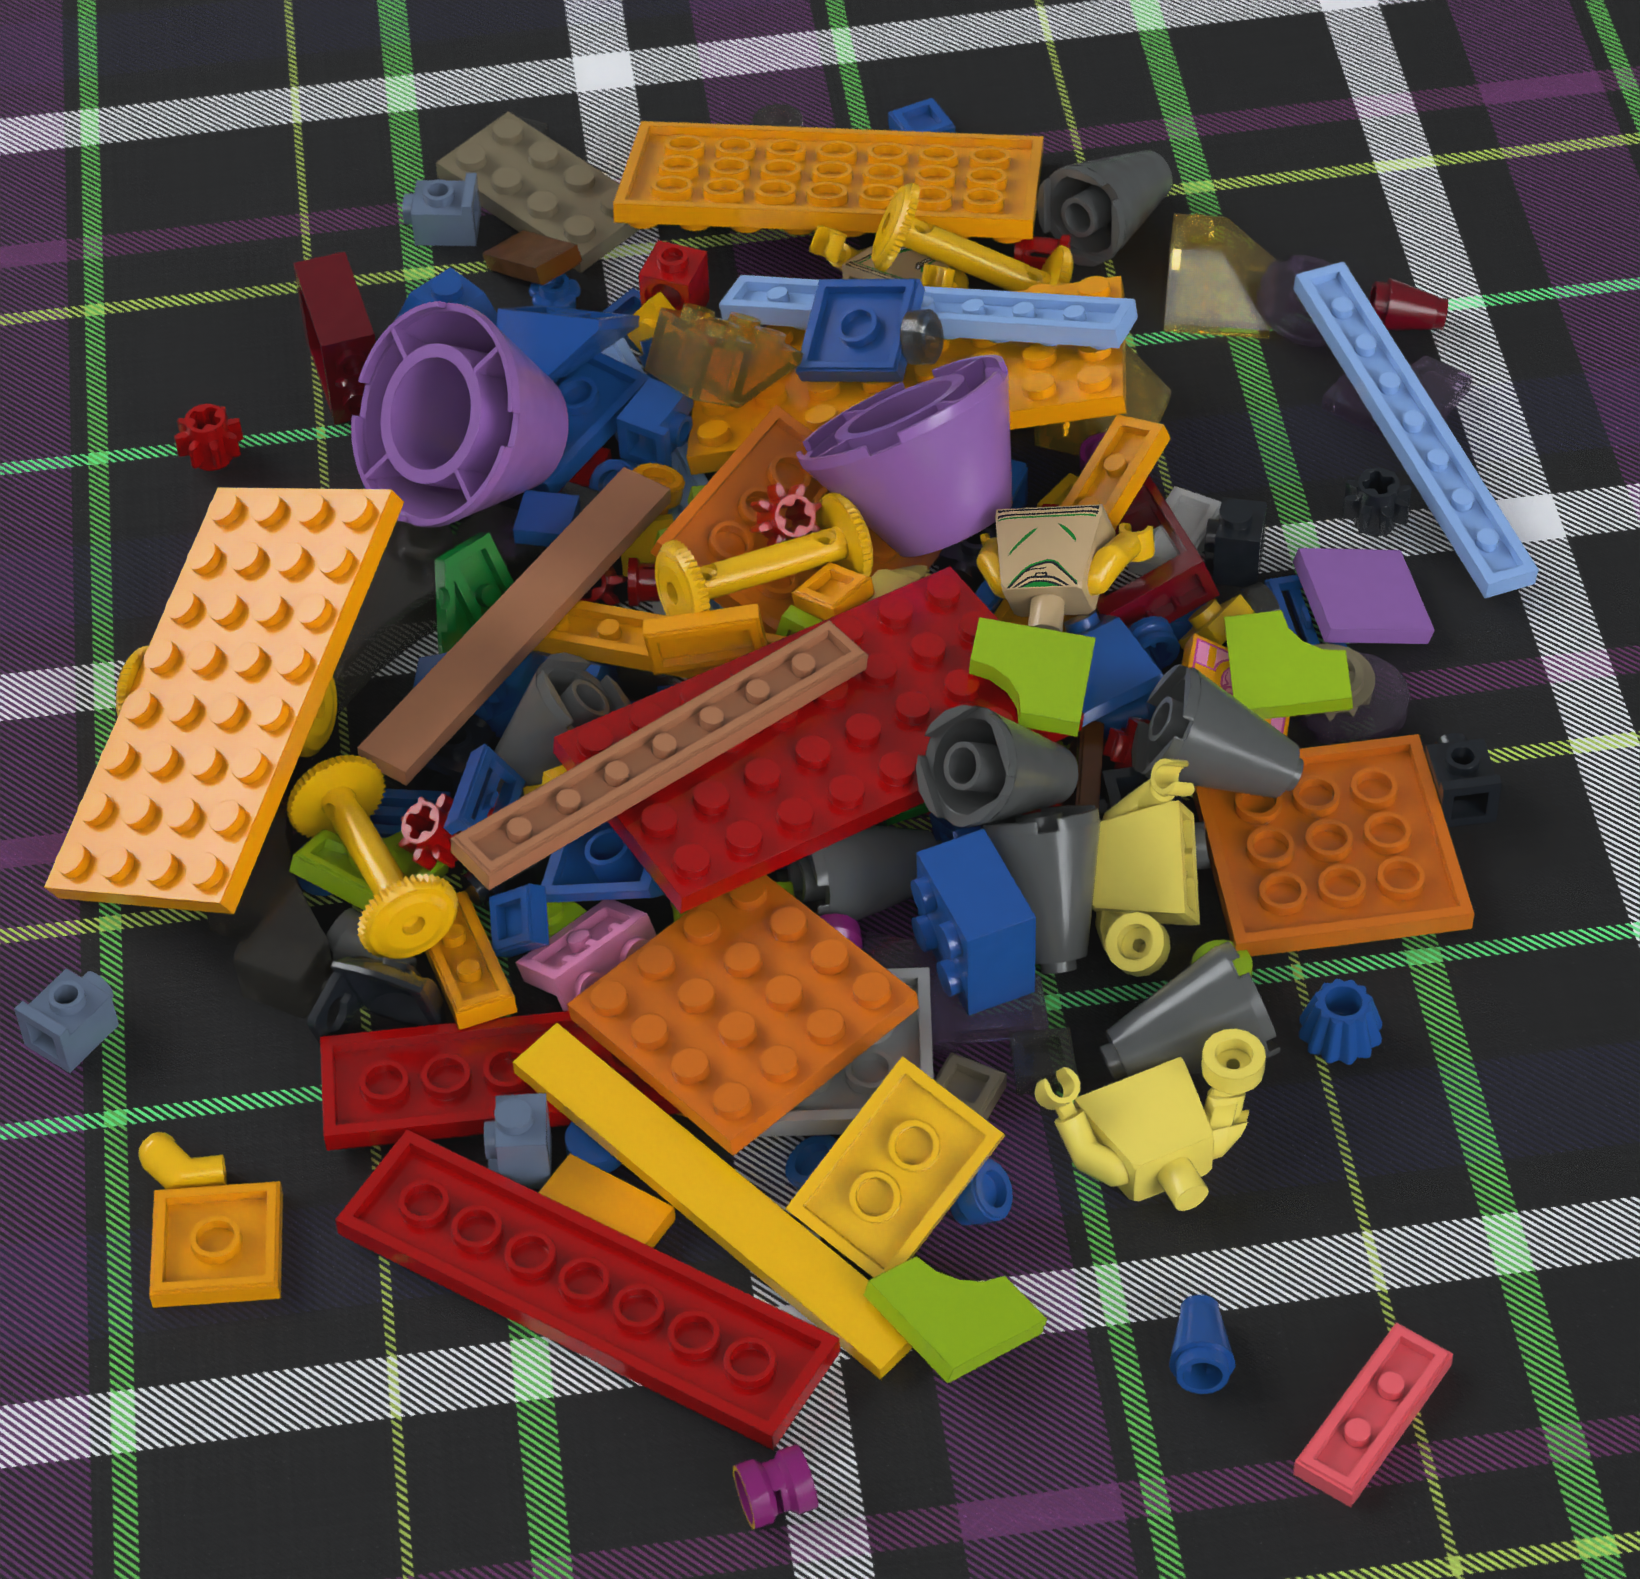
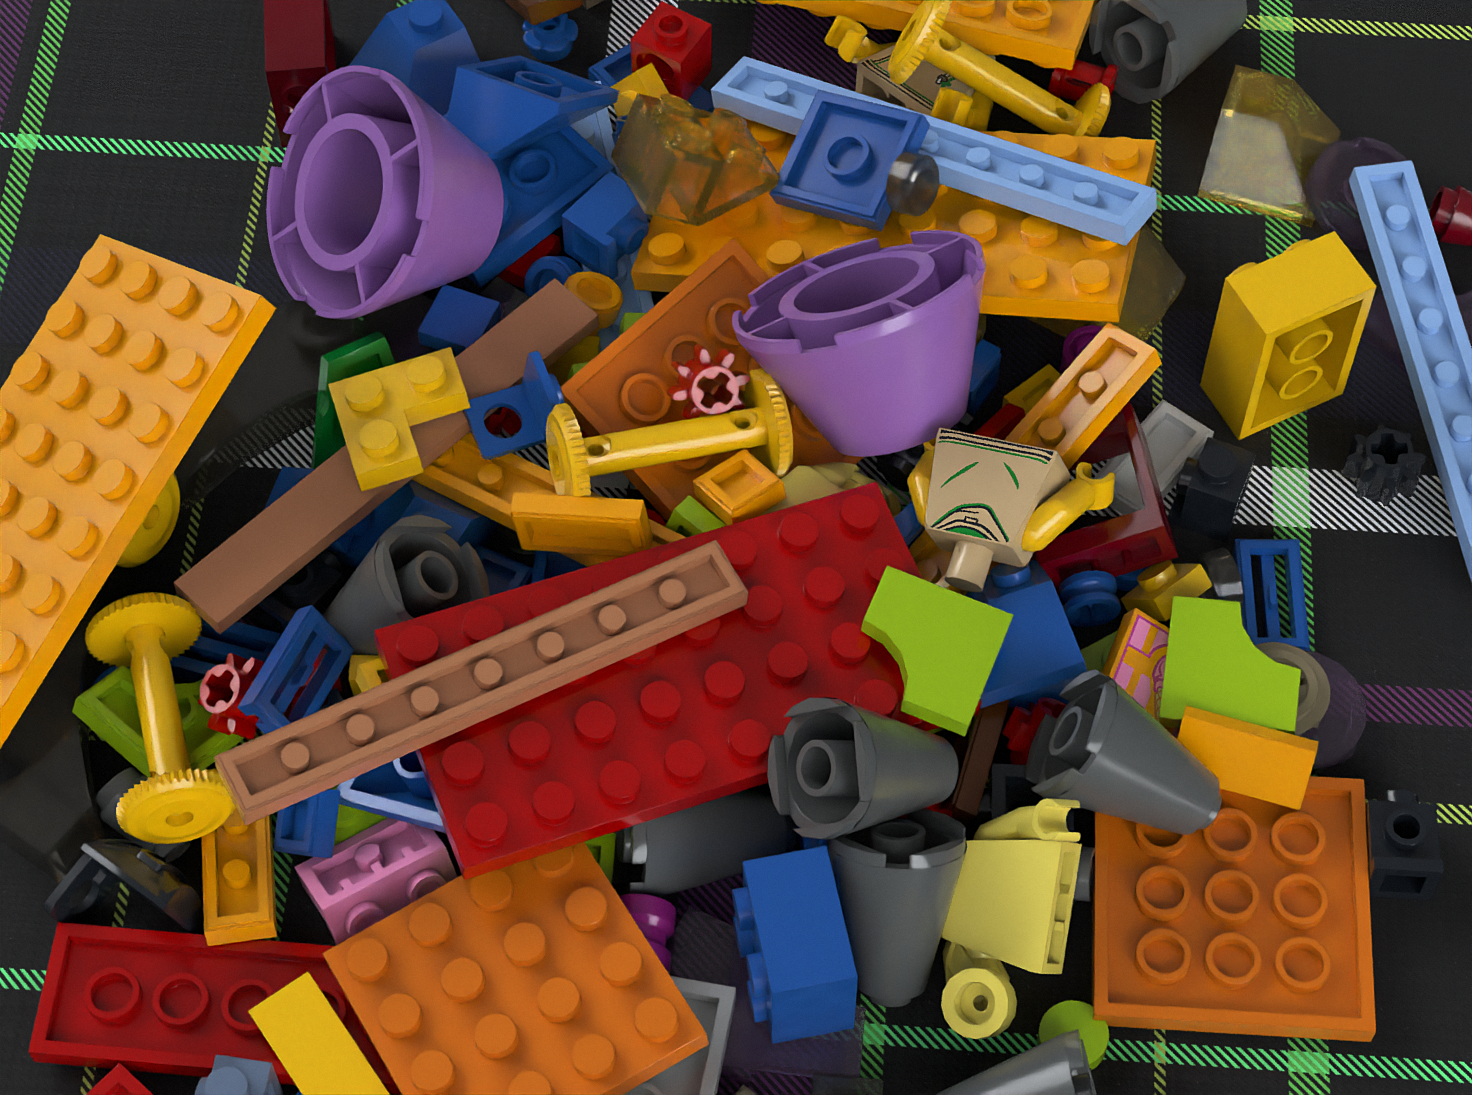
camera: 10 degrees right, 10 degrees up
(208, 437) = (139, 143): red gear -> none
(506, 586) = (382, 406): none -> yellow plate
(632, 561) = (530, 401): none -> blue bracket
(1270, 406) = (1286, 334): none -> yellow brick
(1321, 725) = (1250, 756): none -> light orange tile
(1363, 596) = (1341, 583): medium lavender tile -> none

